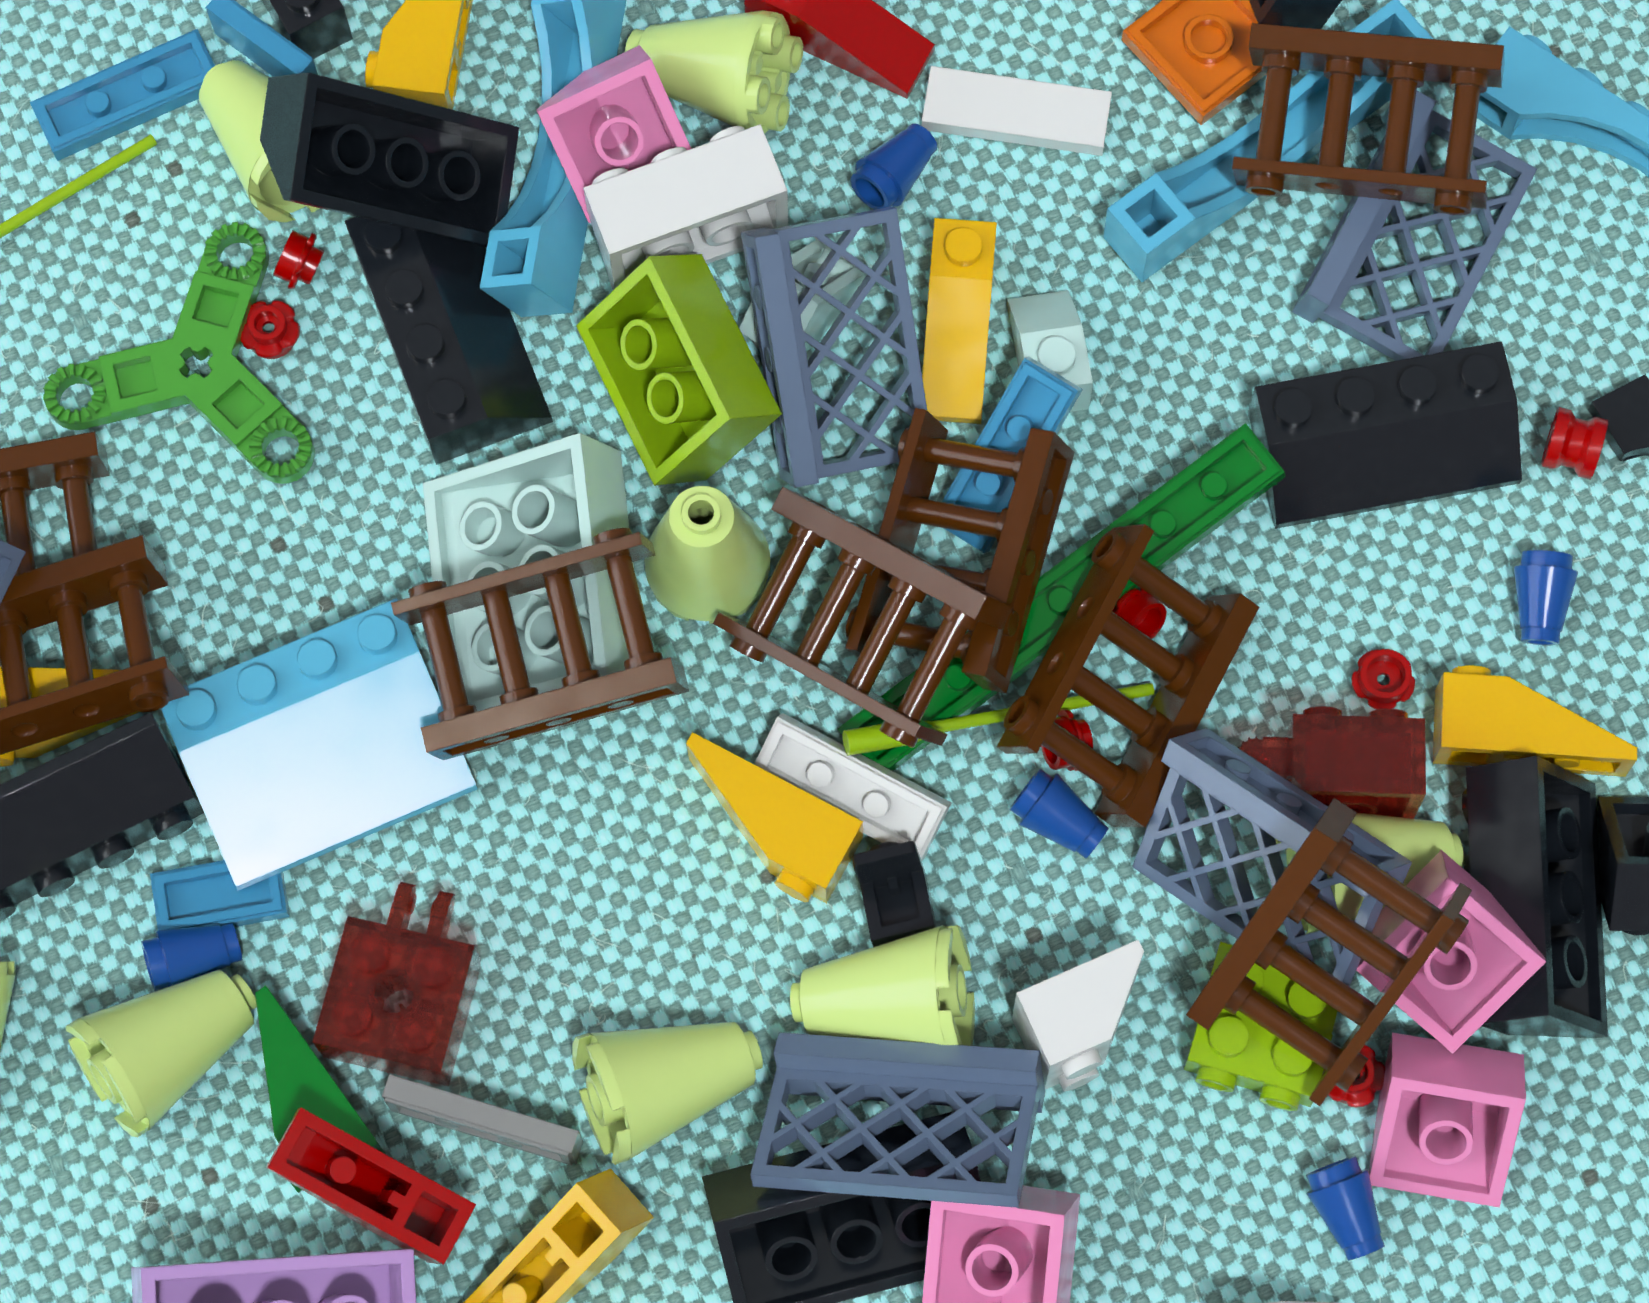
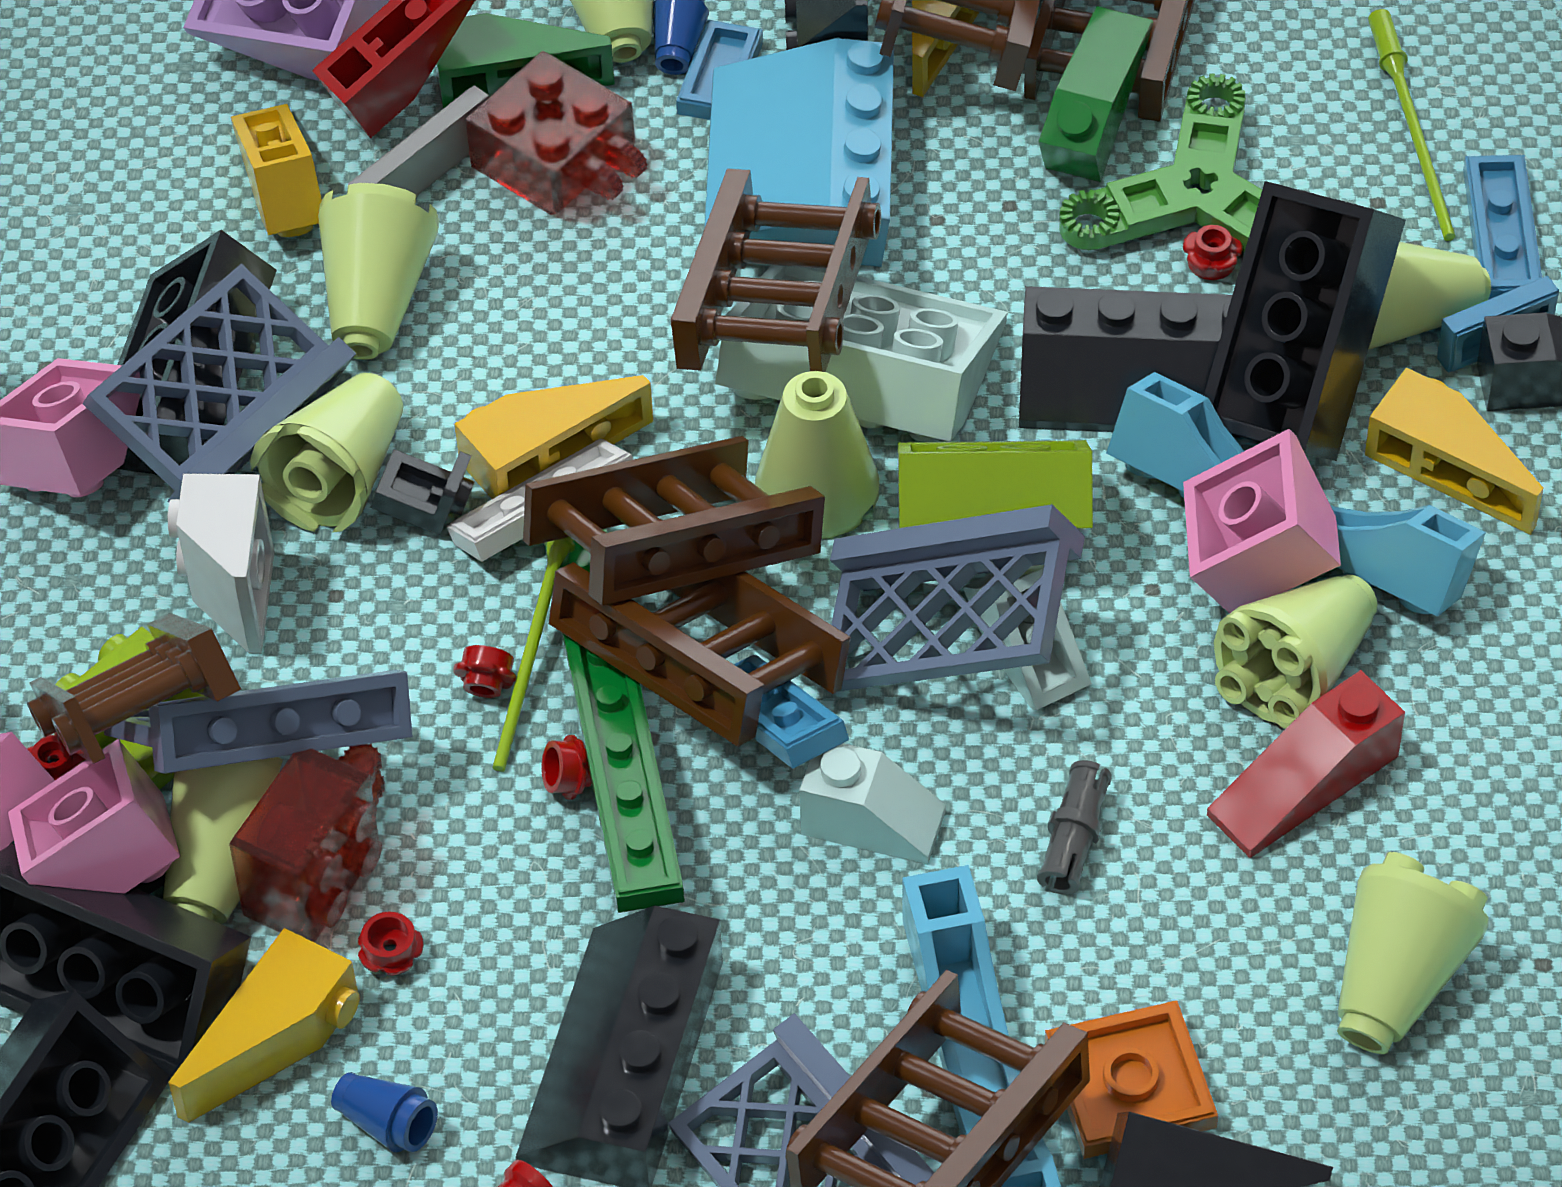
camera: 115 degrees right, 20 degrees down
(130, 491) = (1094, 94): none -> green slope
(687, 202) = (1154, 544): white slope -> none
(891, 170) = (1126, 749): blue cone -> none
(958, 319) = (950, 747): yellow slope -> none
(986, 181) = (1074, 827): none -> dark grey pin
(1016, 110) = (1141, 890): white tile -> none
(1058, 814) = (423, 636): blue cone -> none
(1185, 678) = (482, 772): reddish brown fence -> none

